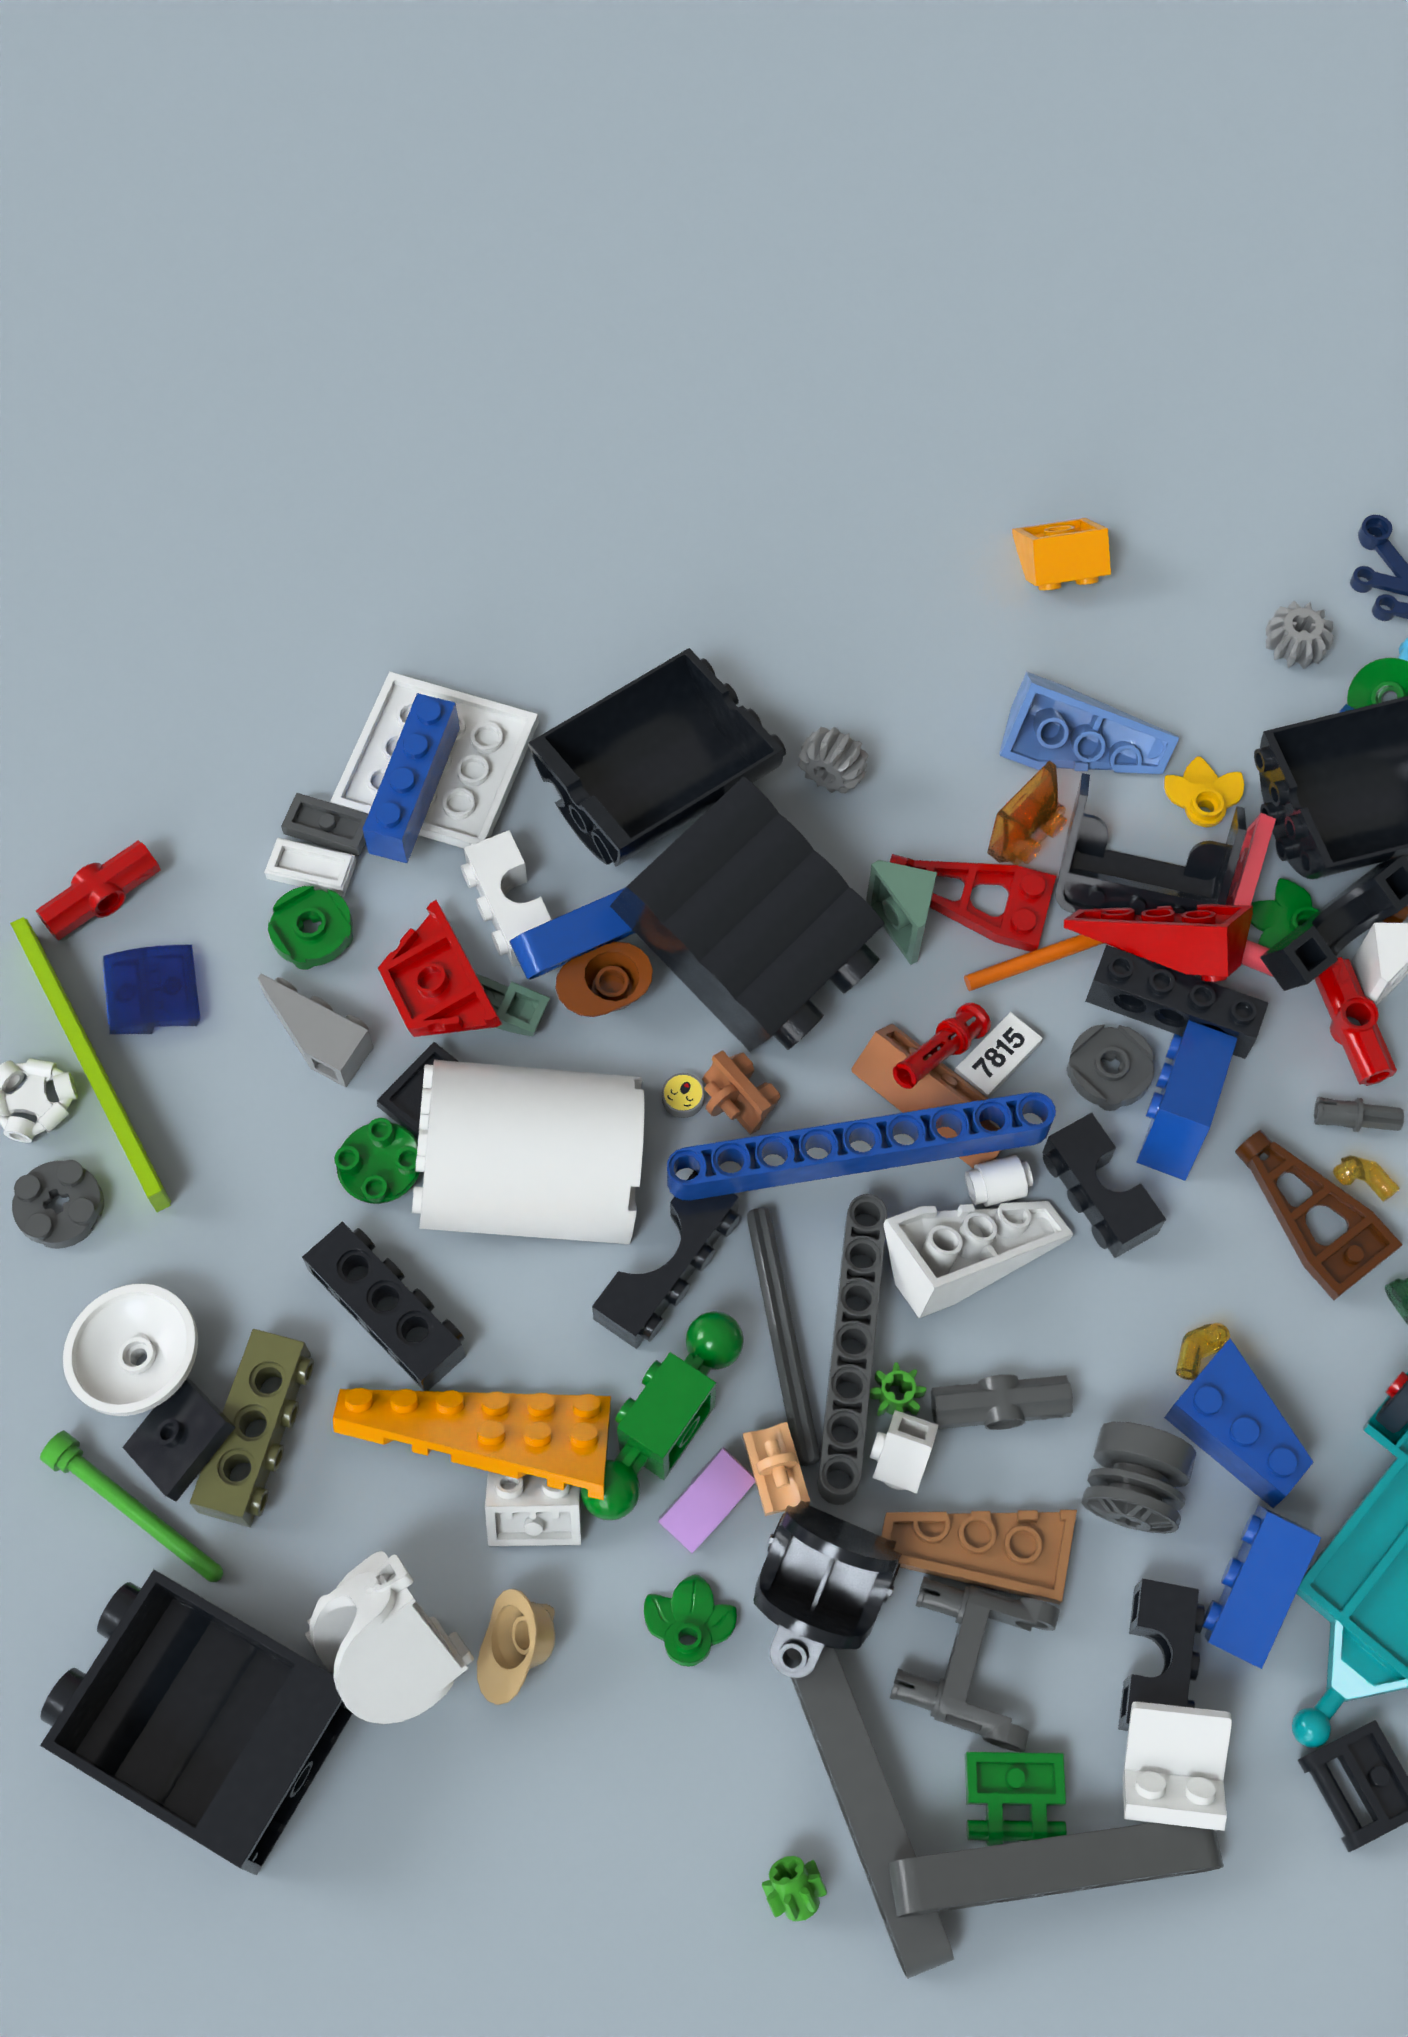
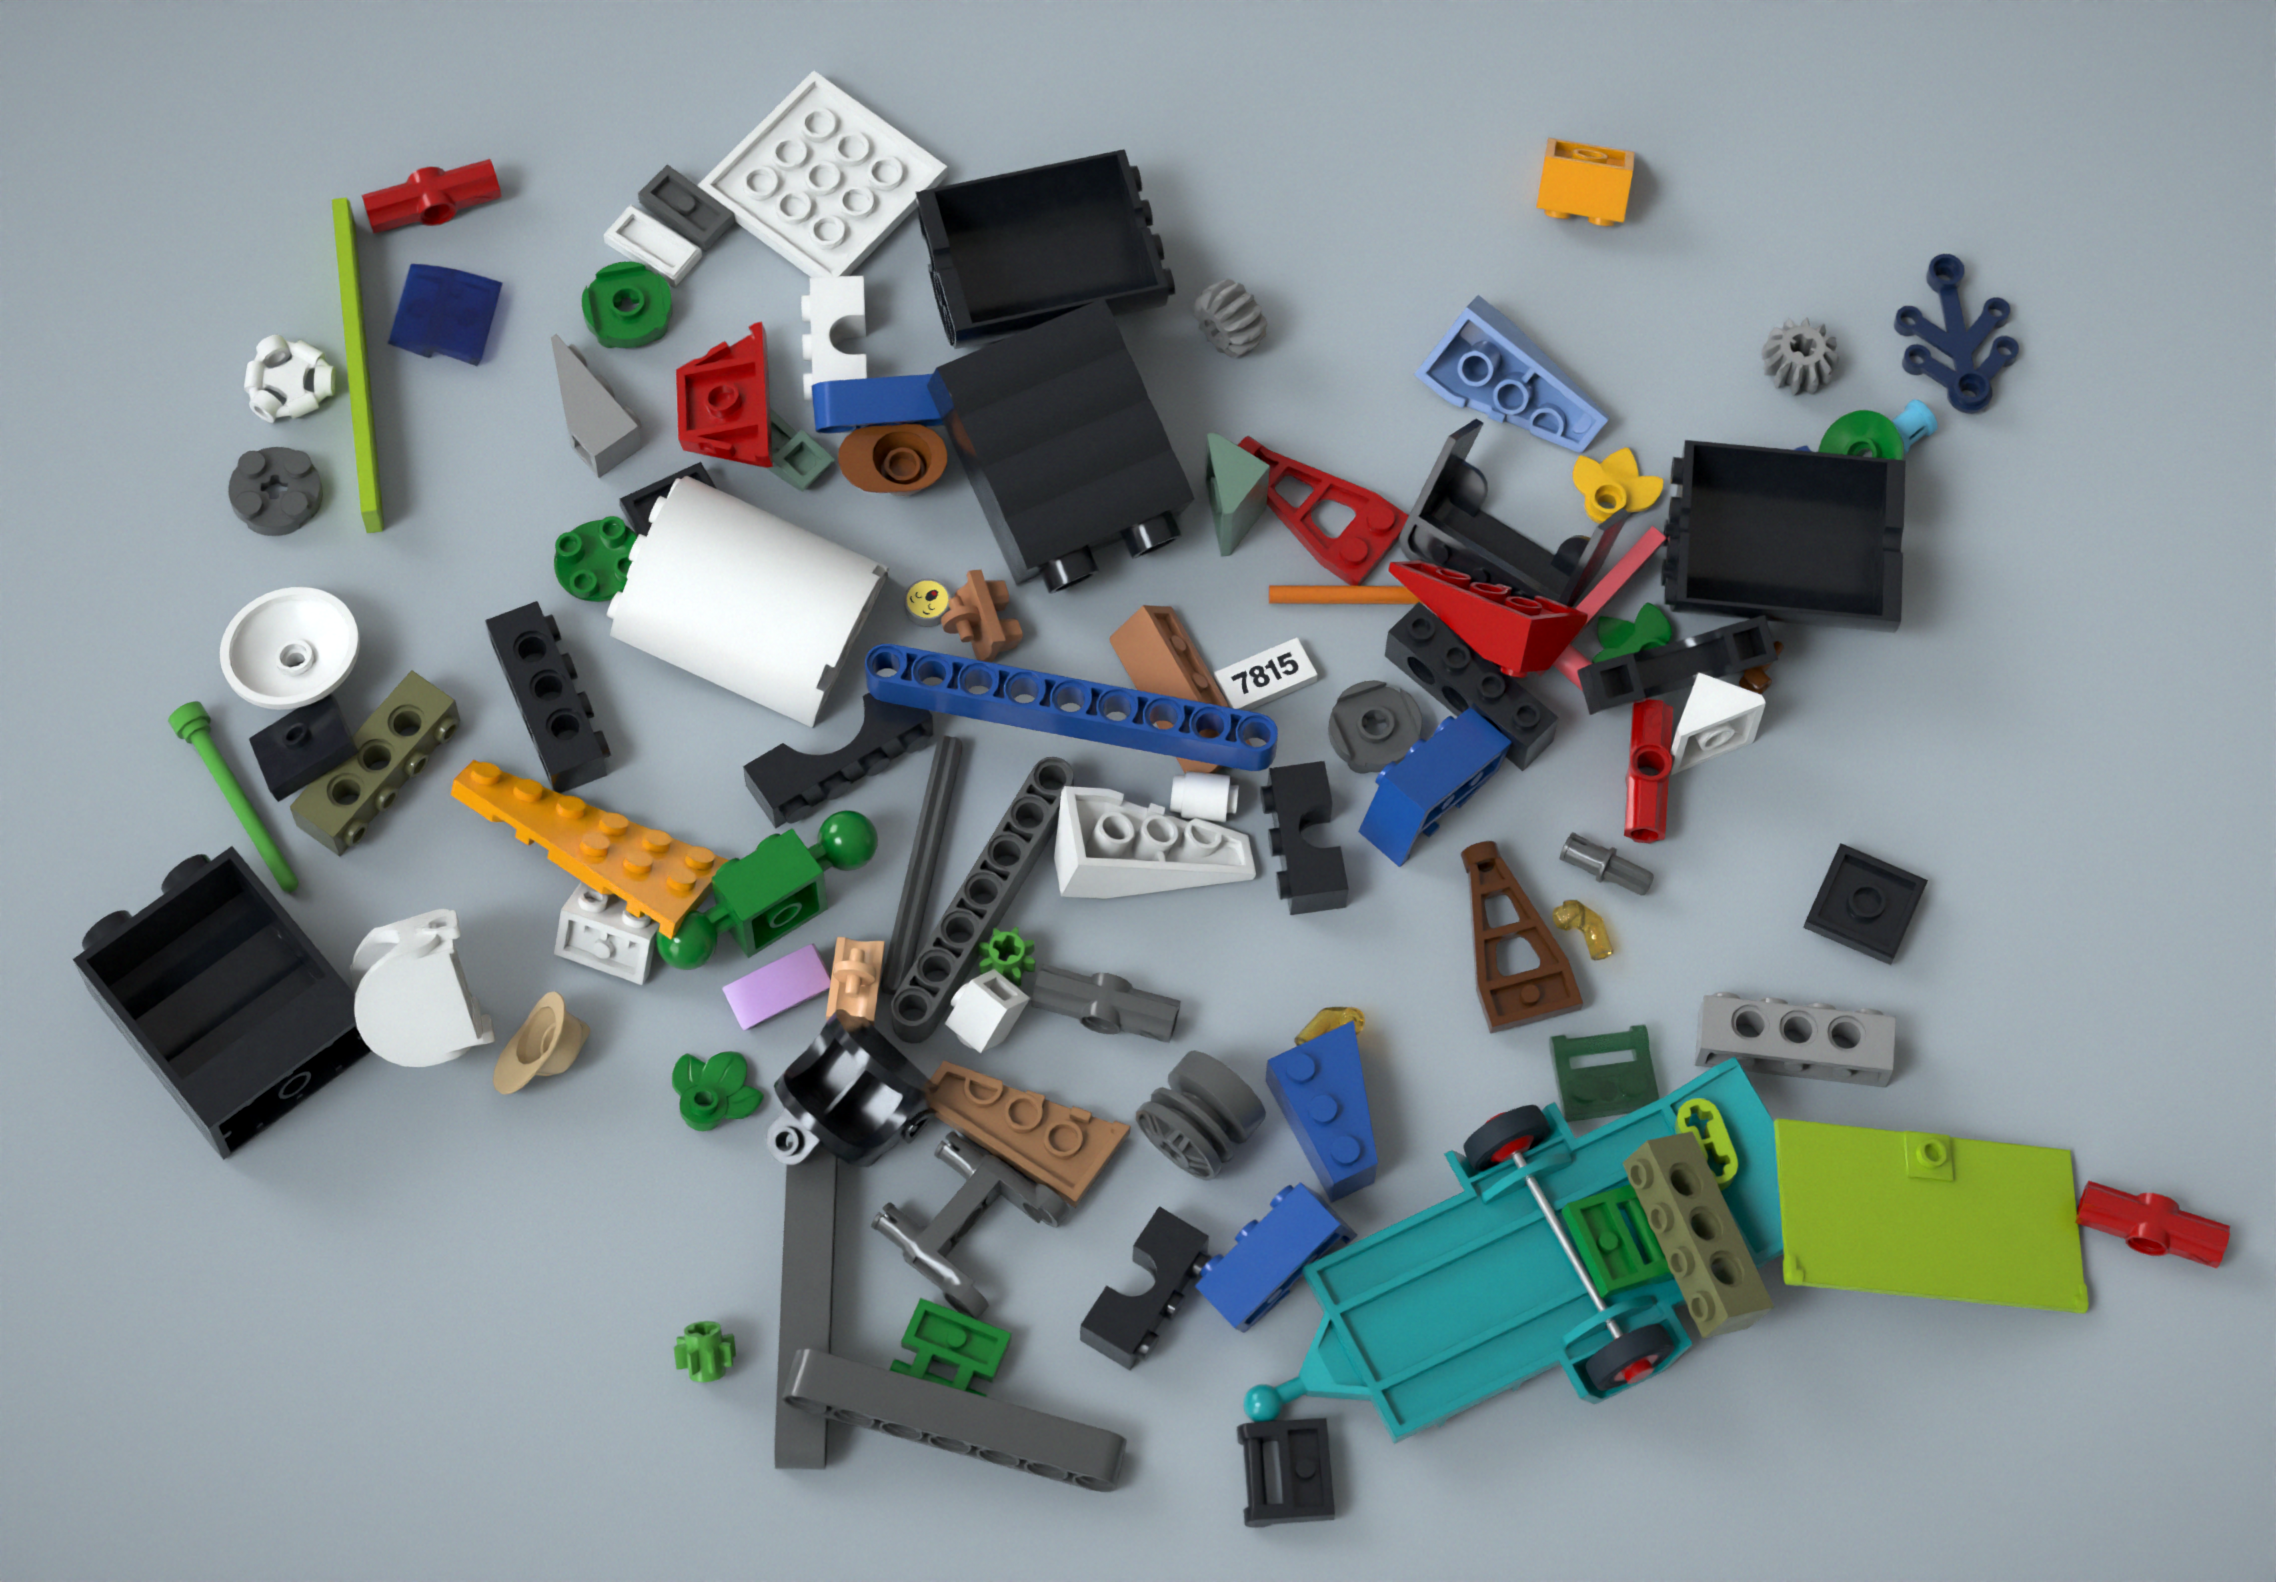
camera: 20 degrees right, 0 degrees up
(411, 778) = (785, 188): blue brick -> none
(915, 1068) = (1219, 638): red pin -> none
(1028, 819) = (1402, 446): clear orange slope -> none
(1176, 1765) = (1109, 1376): white bracket -> none

